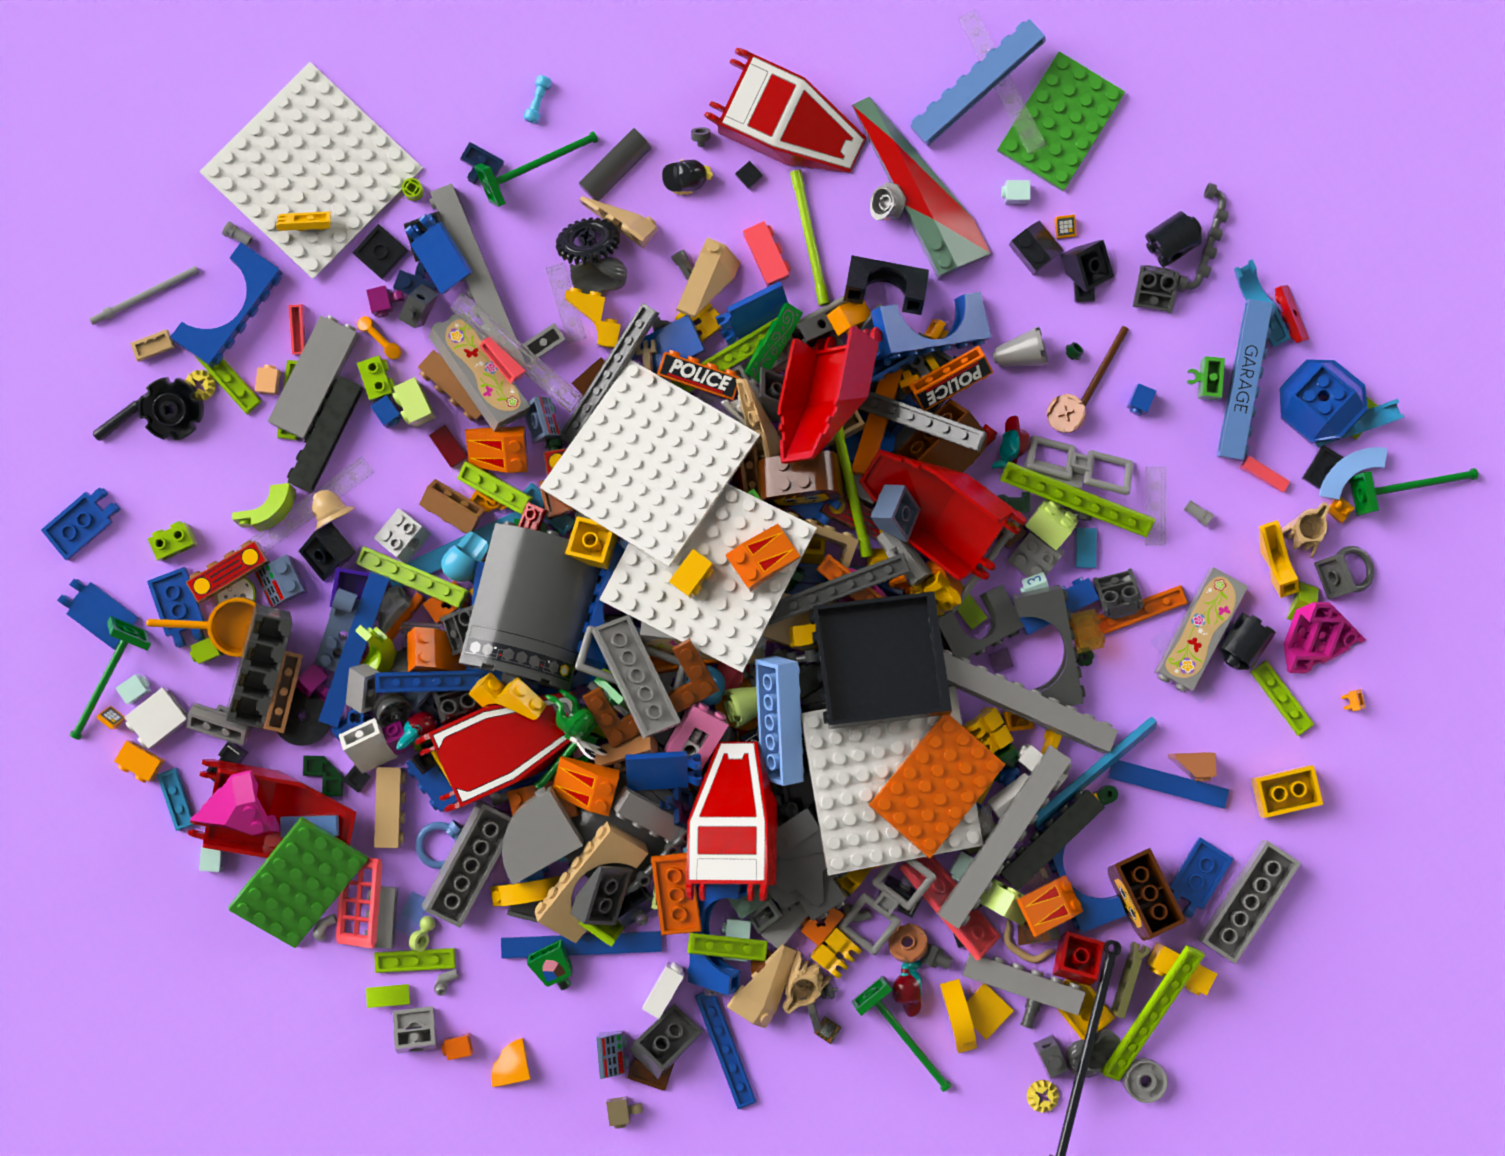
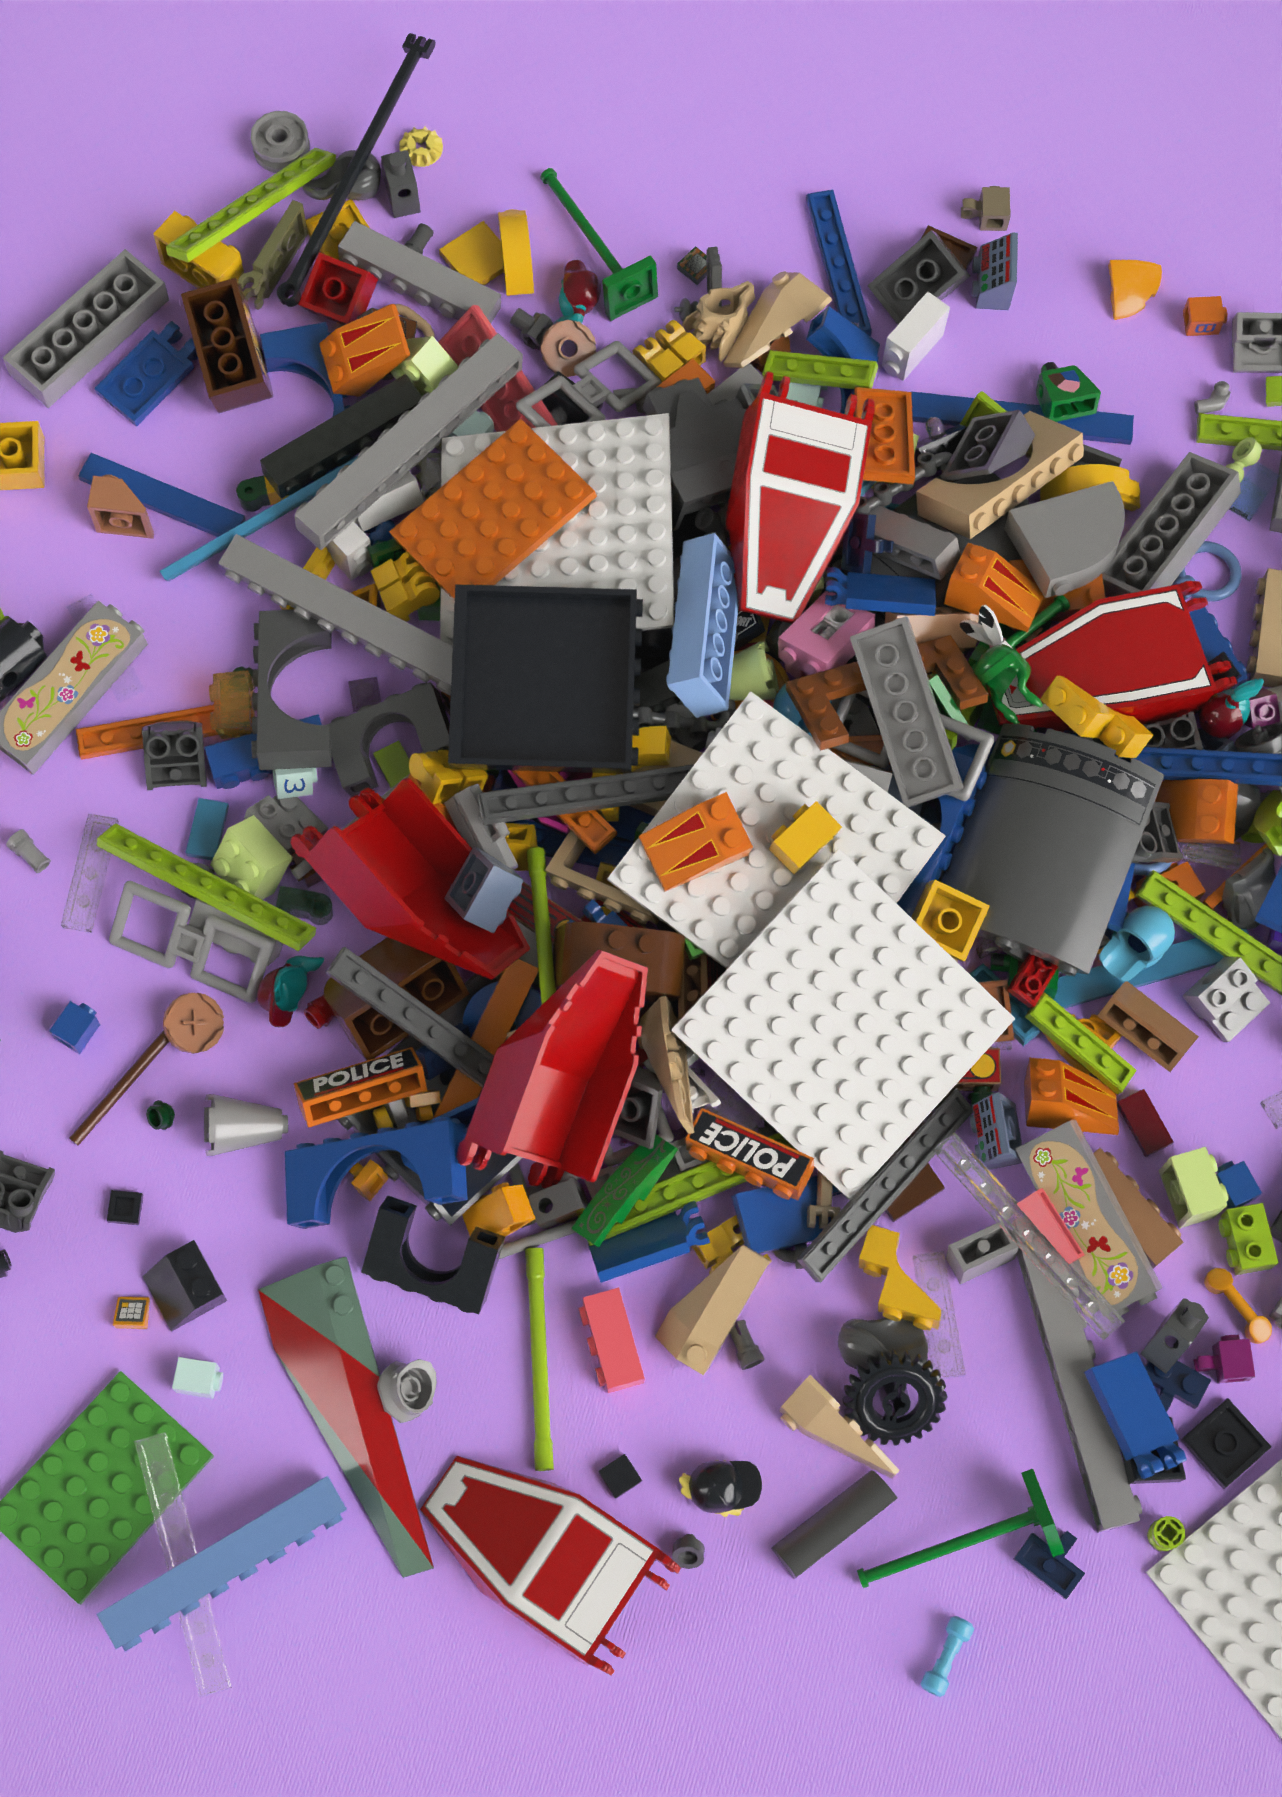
camera: 170 degrees left, 15 degrees down
(1088, 264) = (110, 1243): black slope -> none

